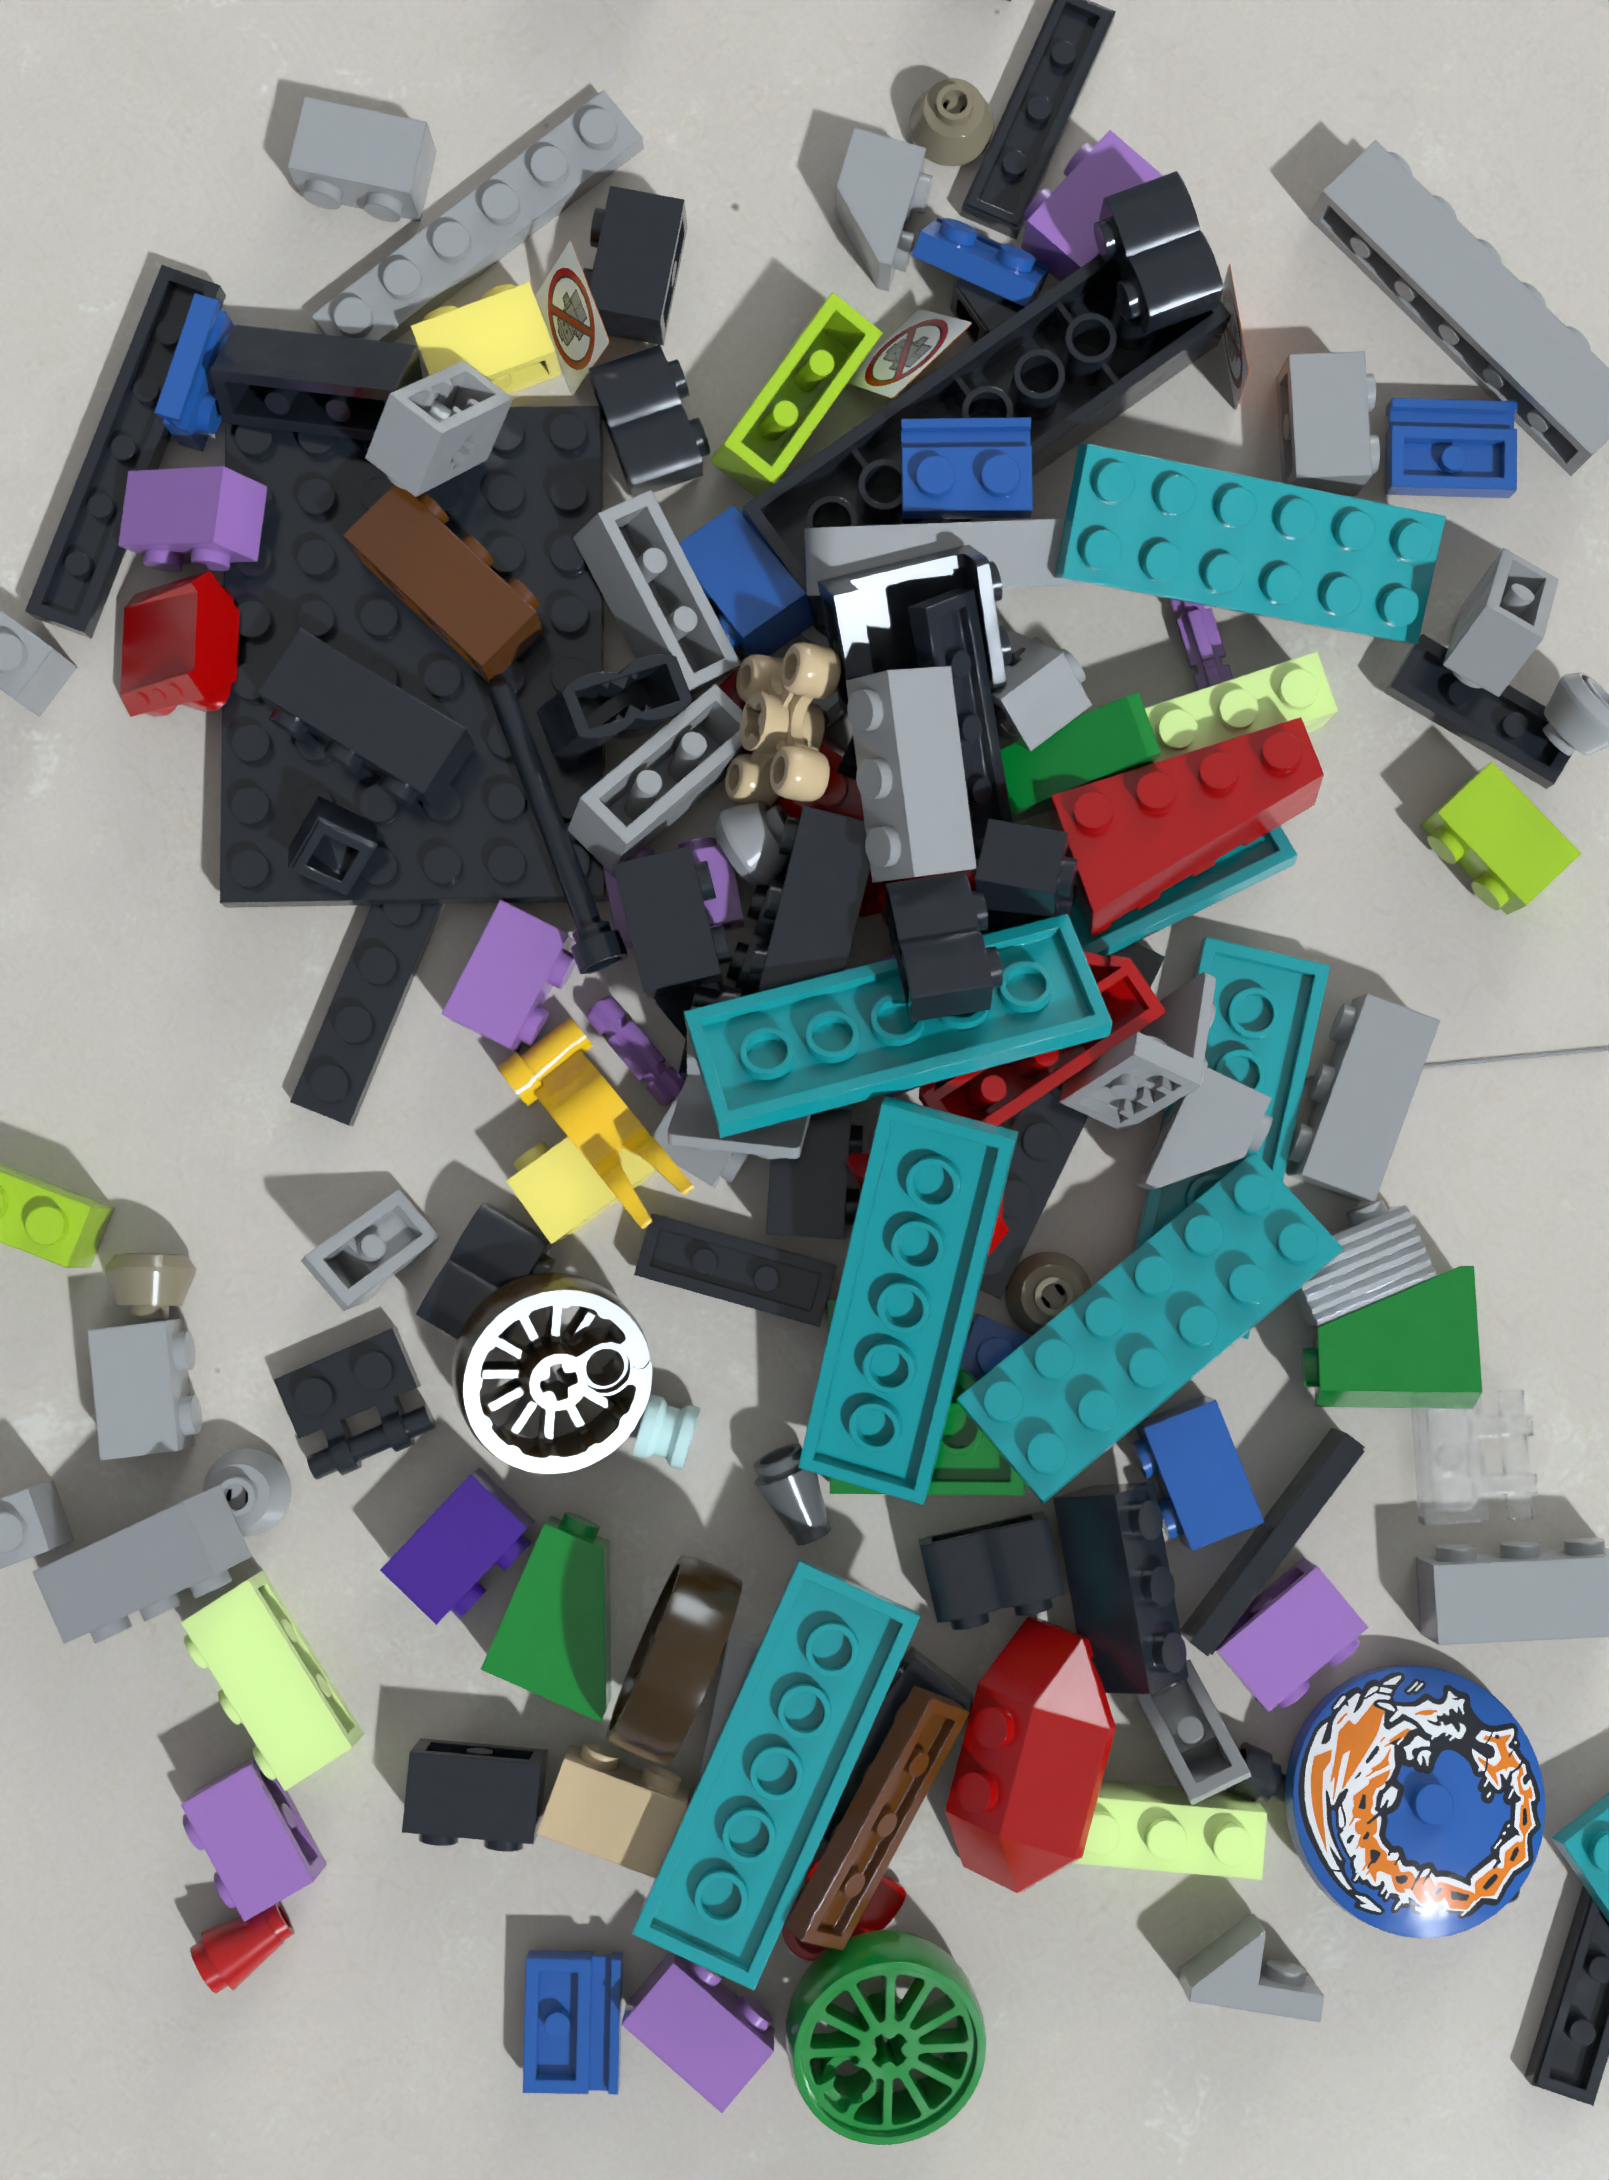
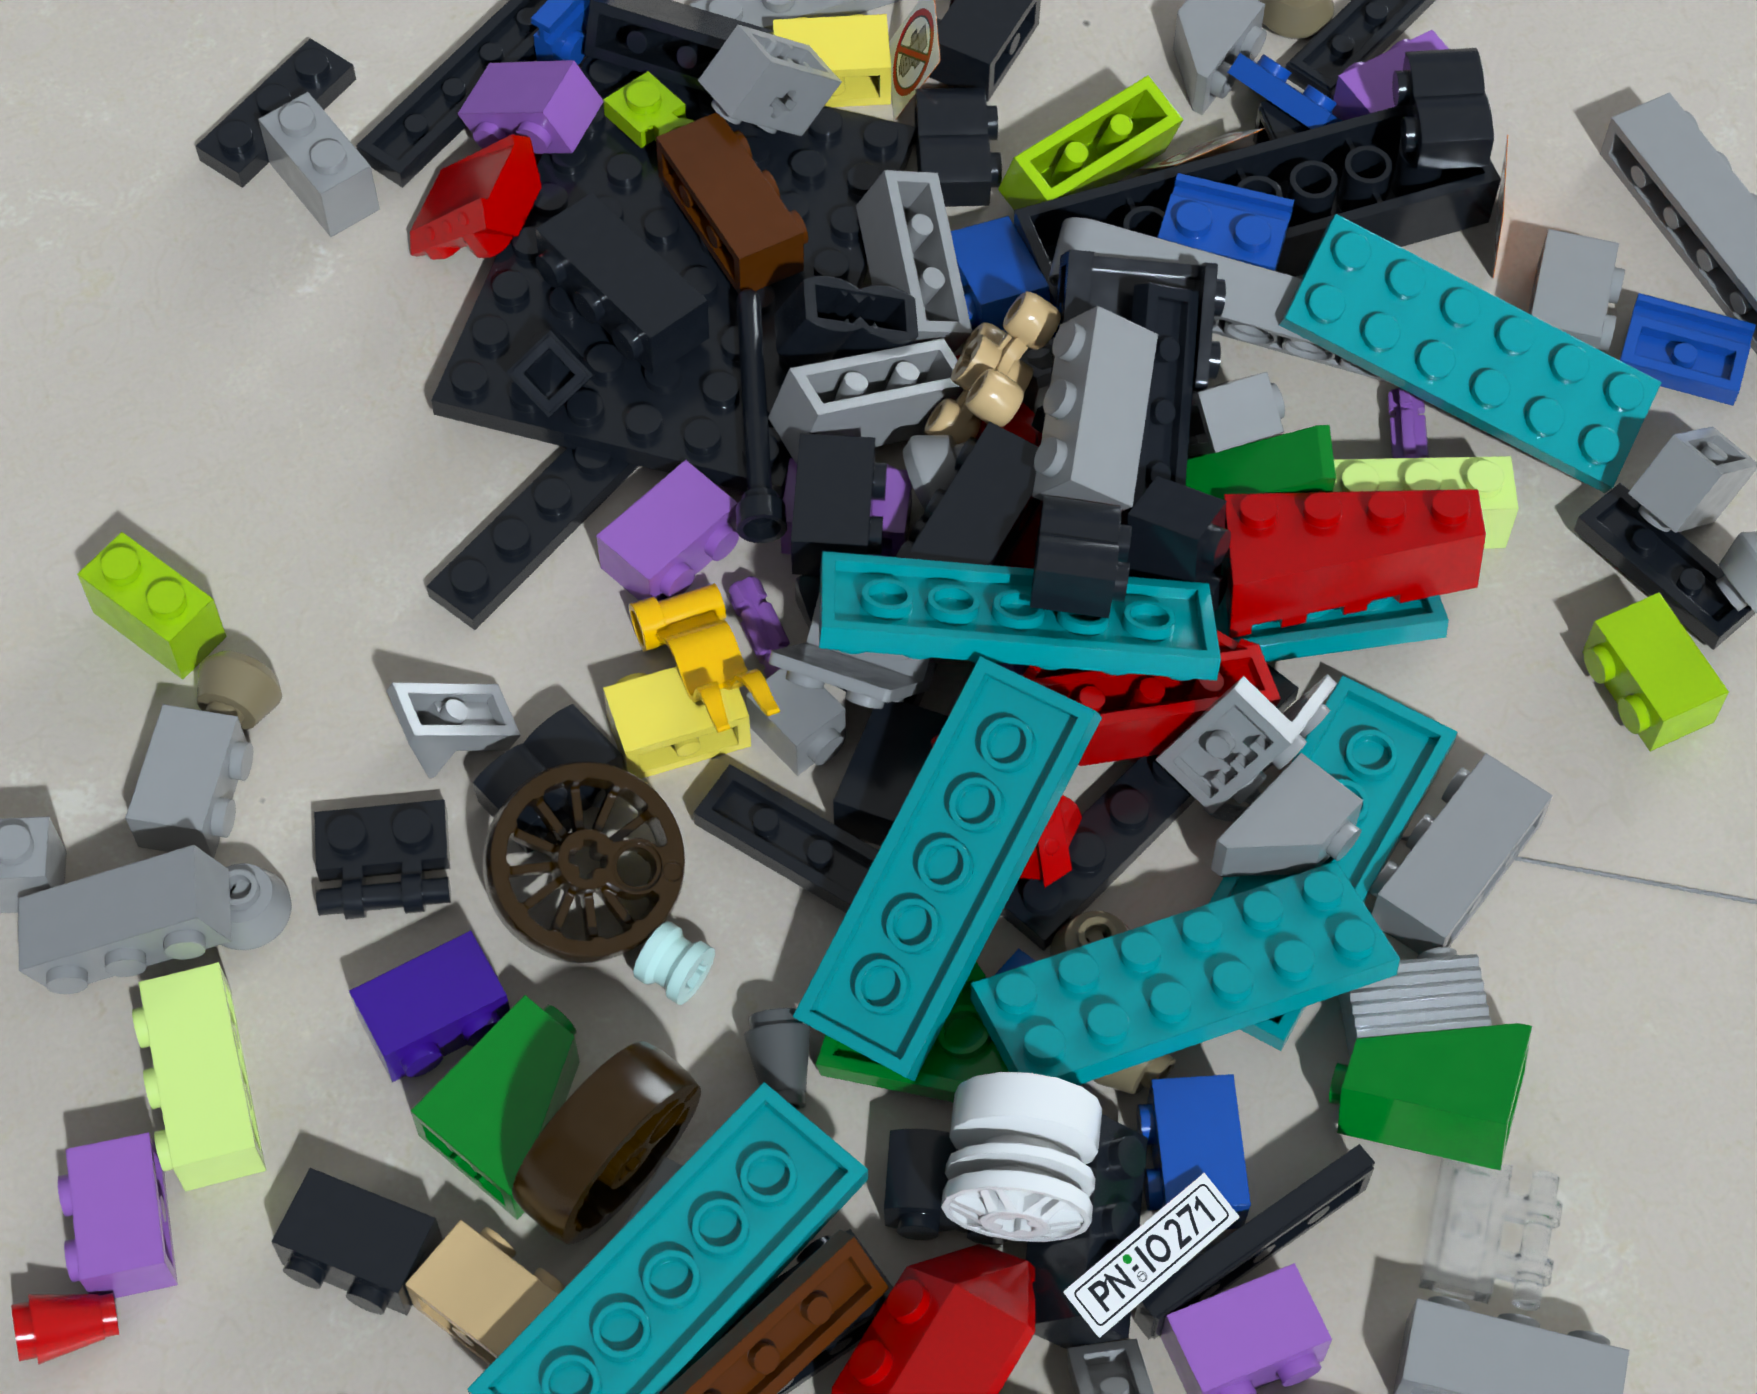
camera: 20 degrees right, 25 degrees down
(320, 484) = (645, 109): none -> lime plate
(1062, 1591) = (1022, 1157): none -> white wheel
(1193, 1609) = (1151, 1255): none -> white sticker

